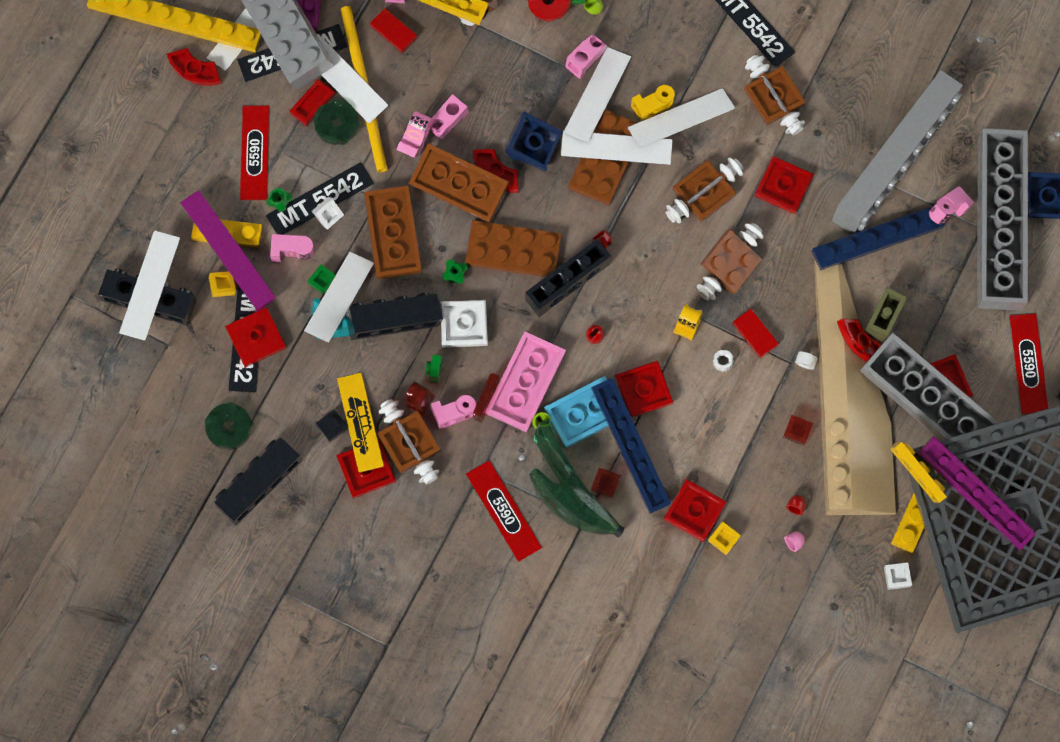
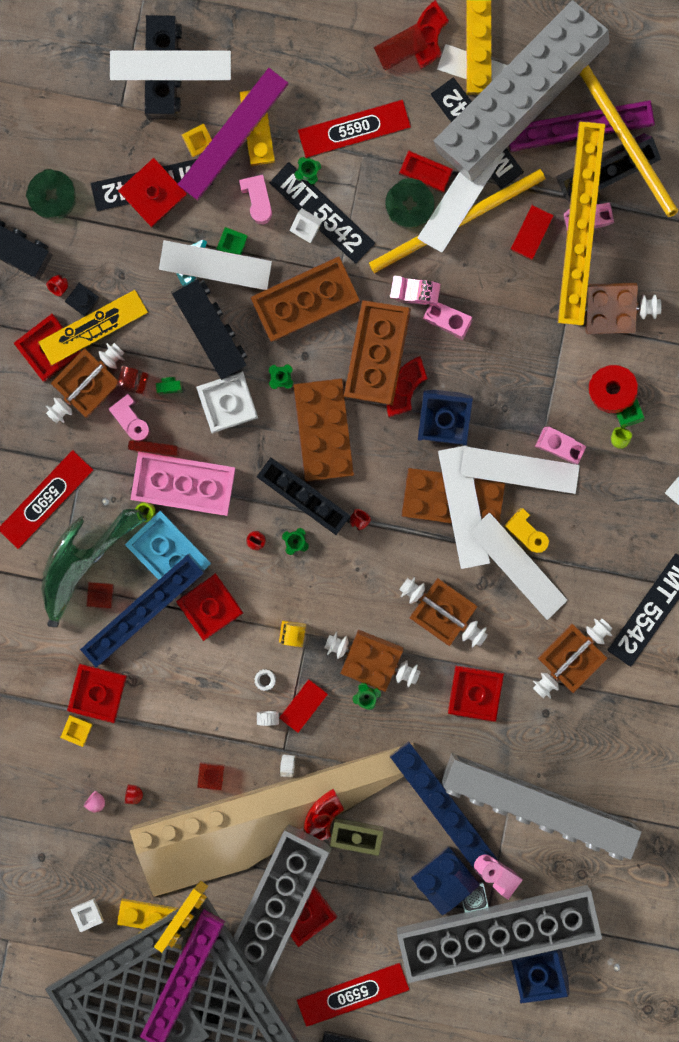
camera: 75 degrees right, 15 degrees up
(197, 92) = (401, 47): none -> clear red tile
(316, 446) = (57, 285): none -> red hinge
(608, 294) = (288, 537): none -> green plate
(758, 365) = (267, 718): none -> white axle
(768, 276) = (366, 703): none -> green plate
(945, 254) = (445, 881): none -> dark blue slope
(965, 235) = (476, 900): none -> tile

